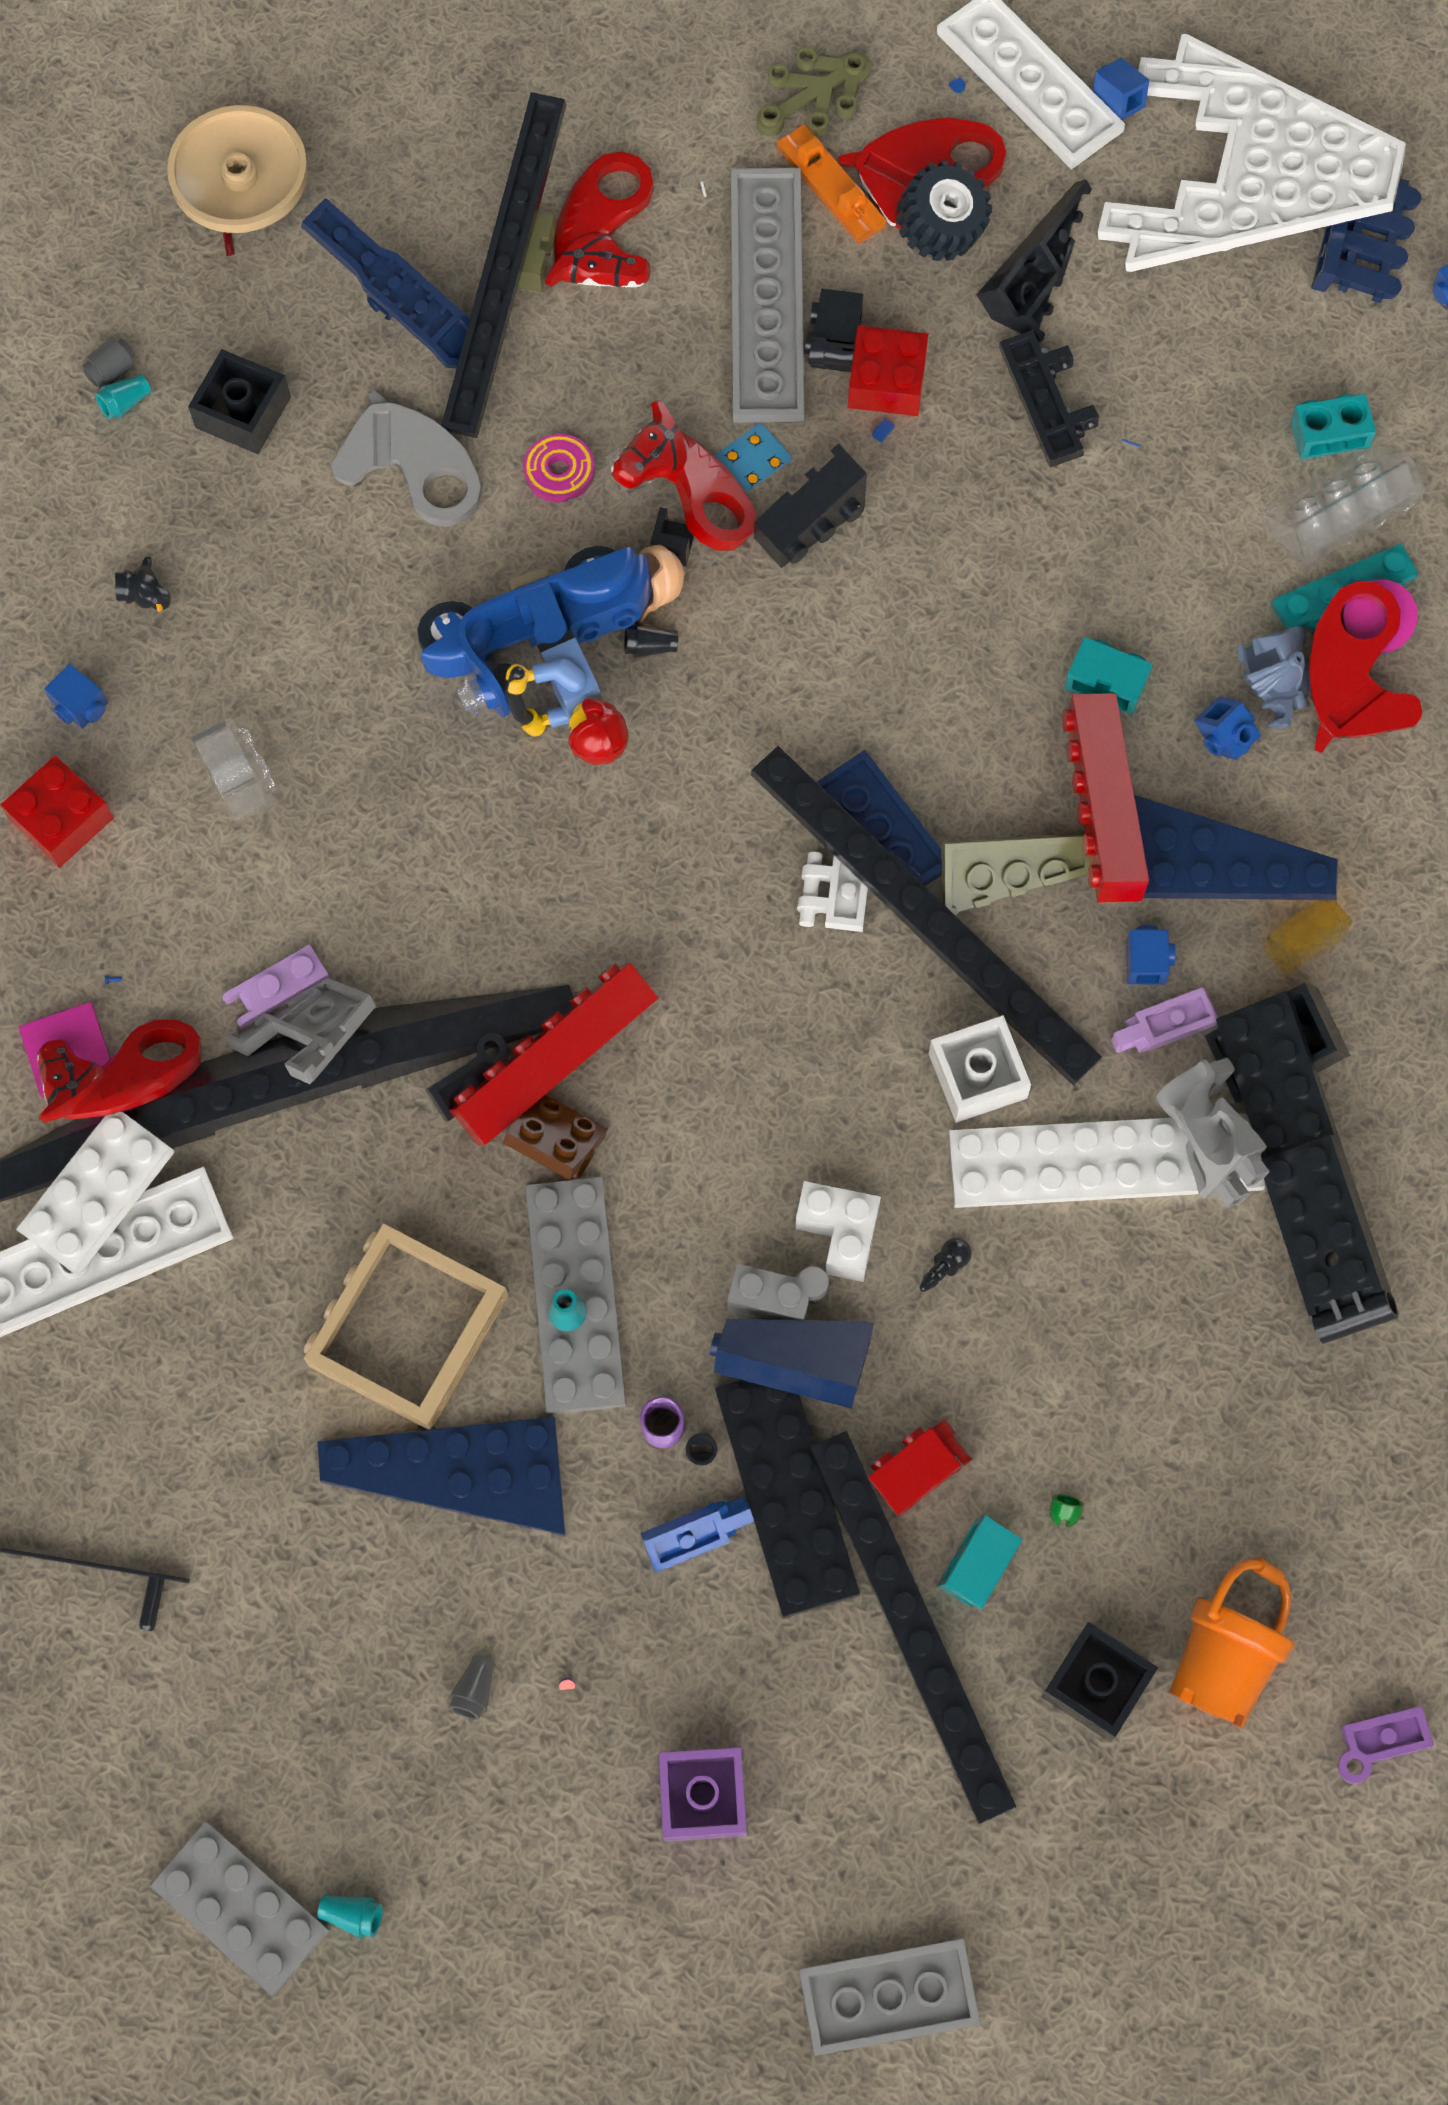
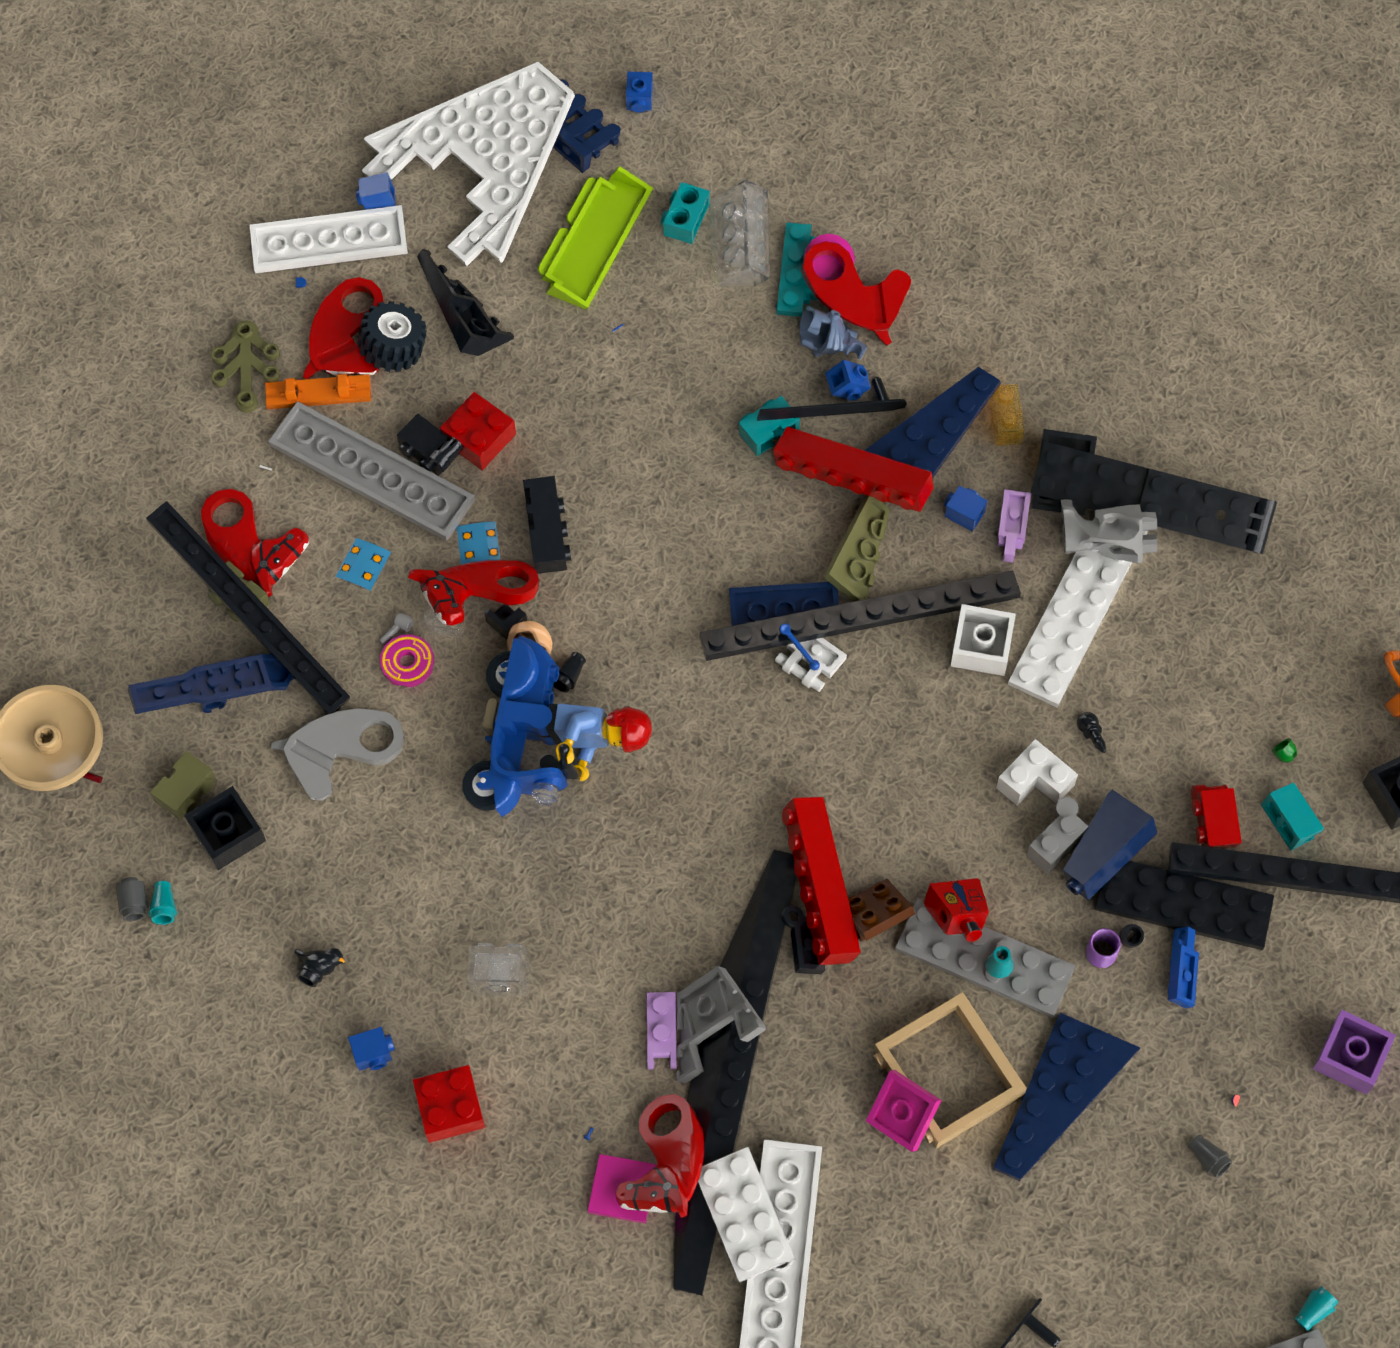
camera: 60 degrees left, 5 degrees down
(267, 335) = (185, 786): none -> olive brick
(320, 1299) = (903, 1110): none -> dark pink tile
(601, 433) = (402, 622): none -> light grey hand
(609, 1225) = (958, 907): none -> red torso
(650, 355) = (363, 564): none -> dark azure sticker
(839, 835) = (785, 630): none -> blue hinge
(883, 430) = (513, 459): blue piece -> none
(1034, 375) = (538, 354): black hinge -> none
(1227, 789) = (881, 405): none -> black piece
(1251, 346) = (598, 229): none -> lime slope

